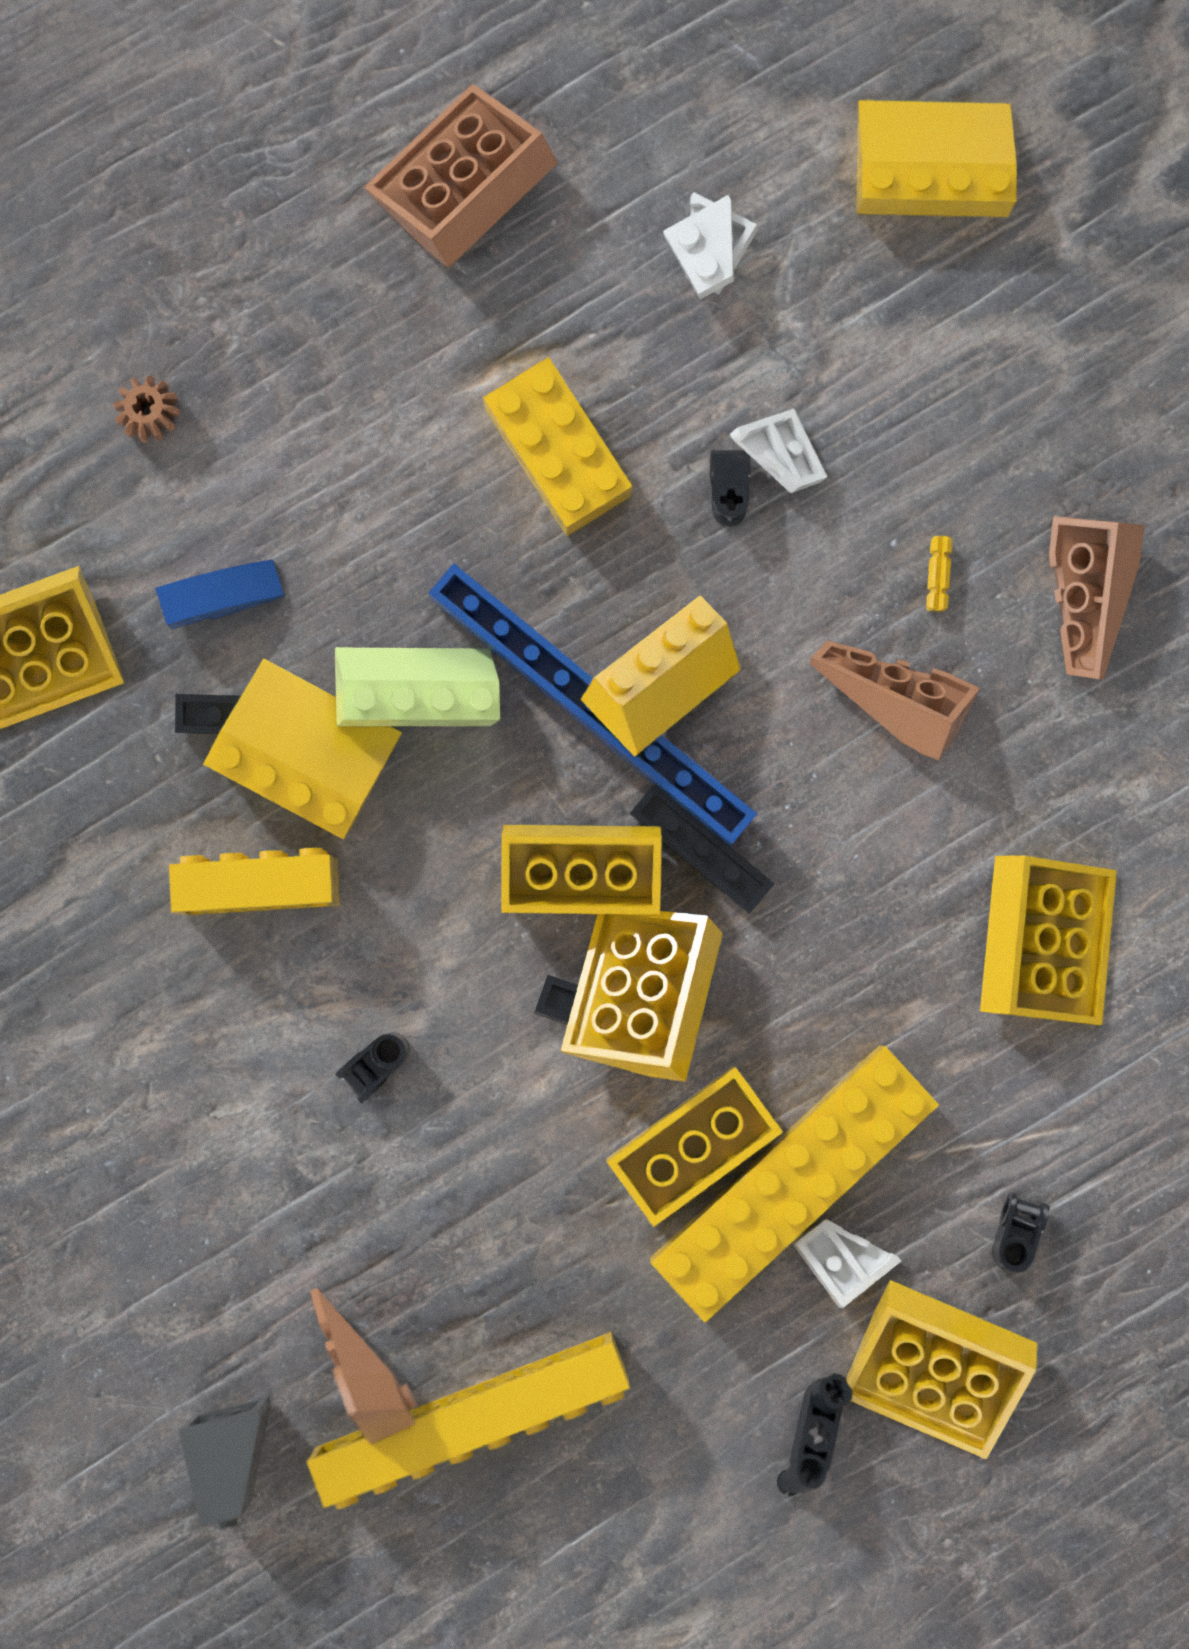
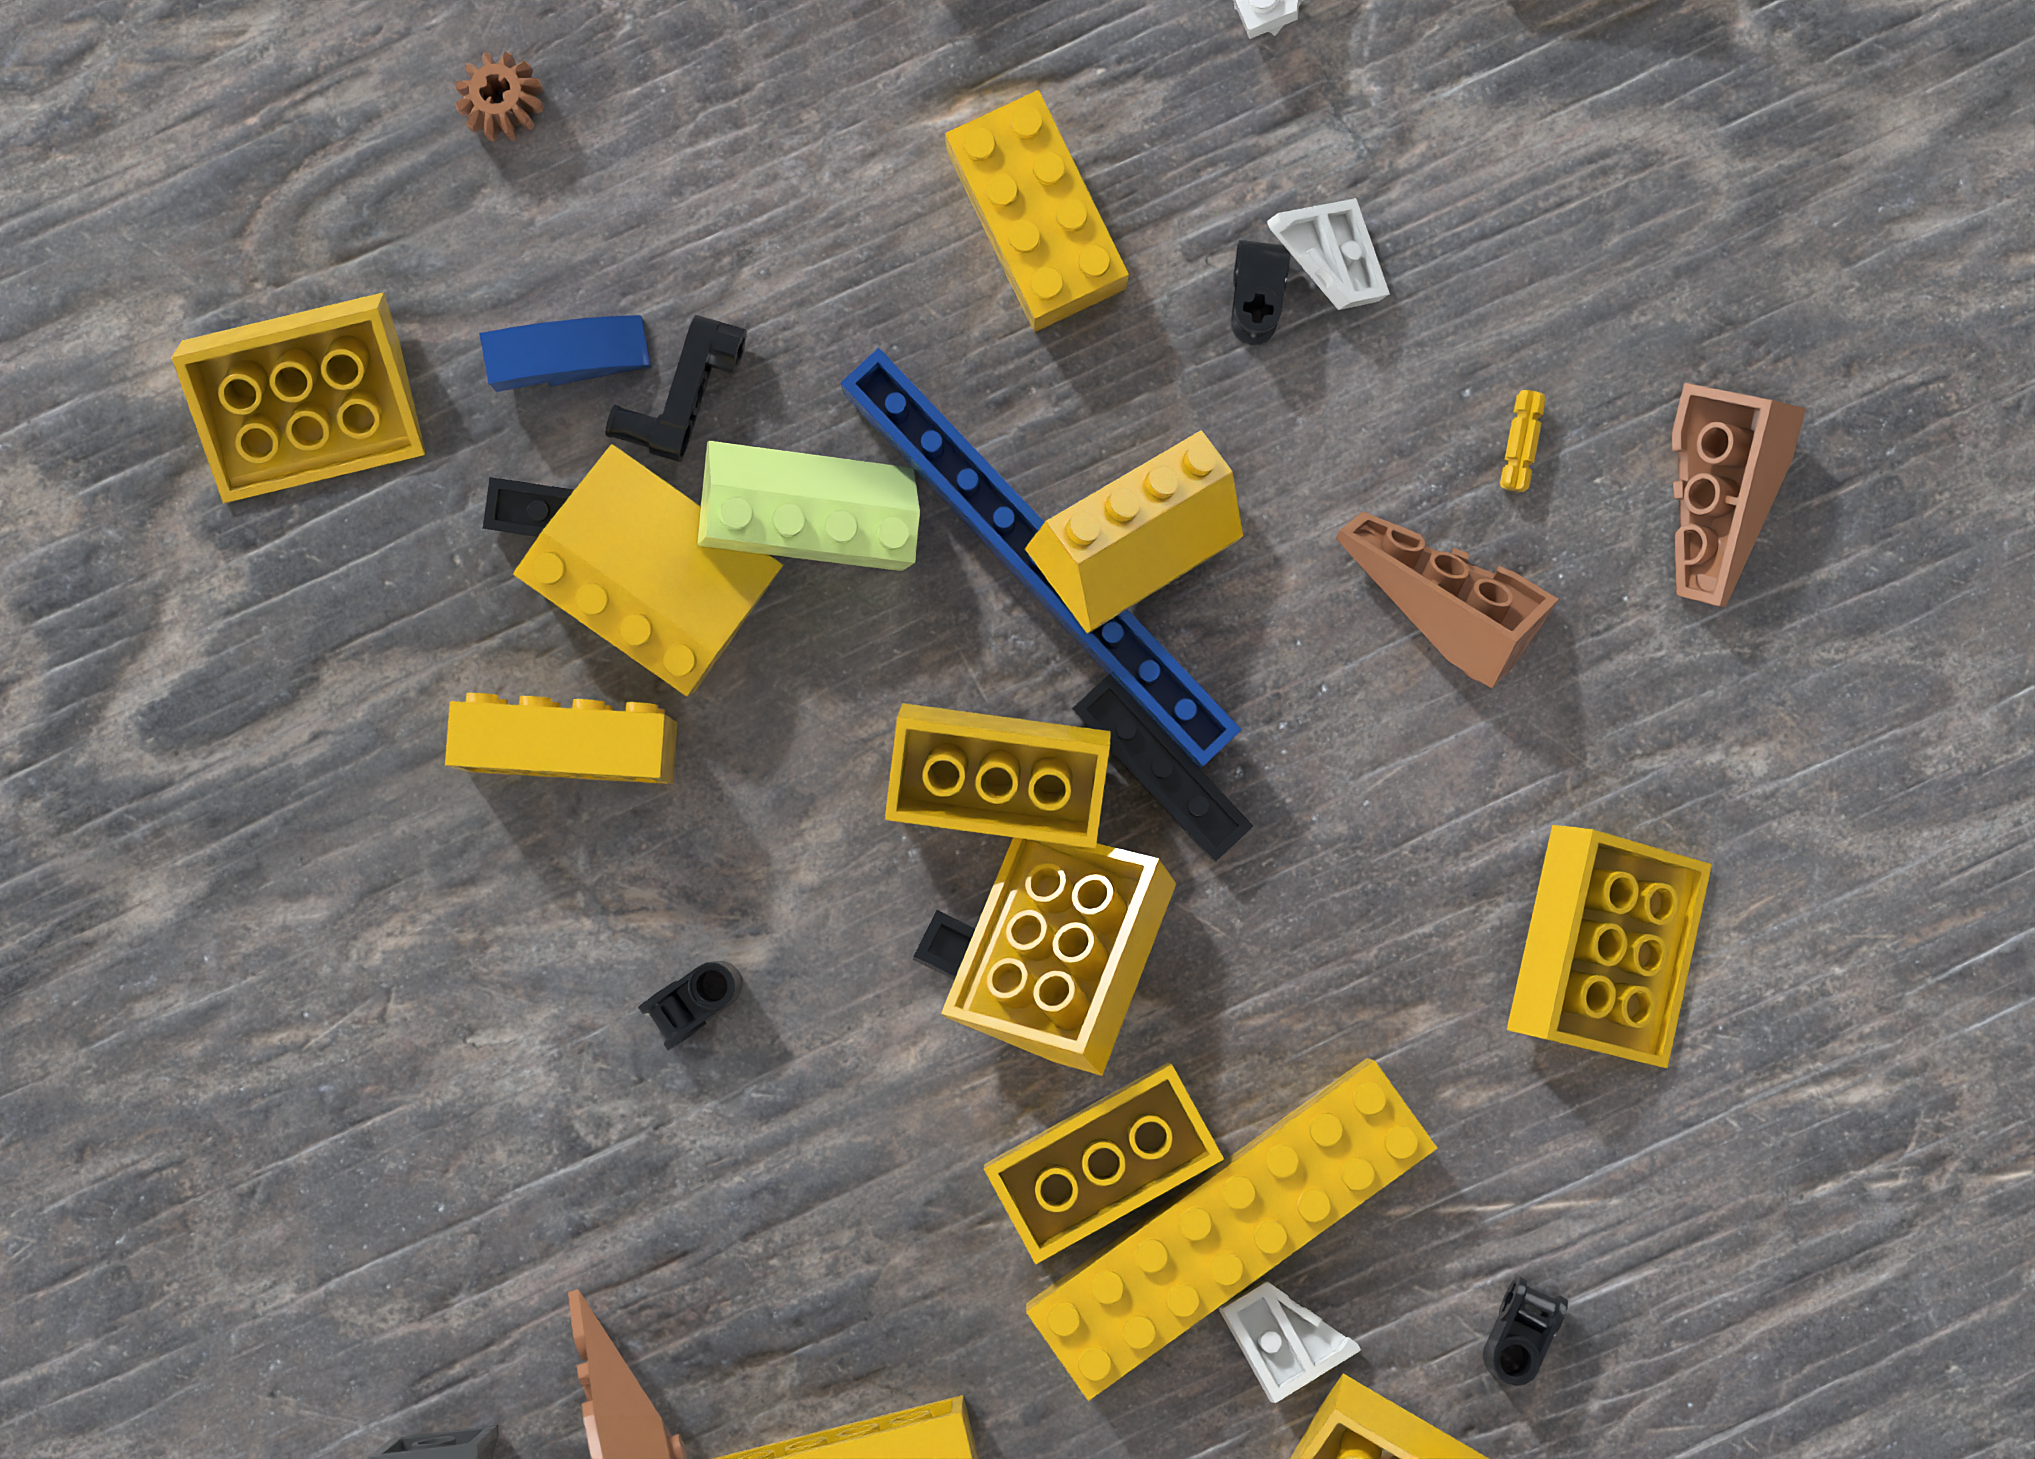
camera: 10 degrees right, 0 degrees up
(325, 576) = (705, 346): none -> black beam

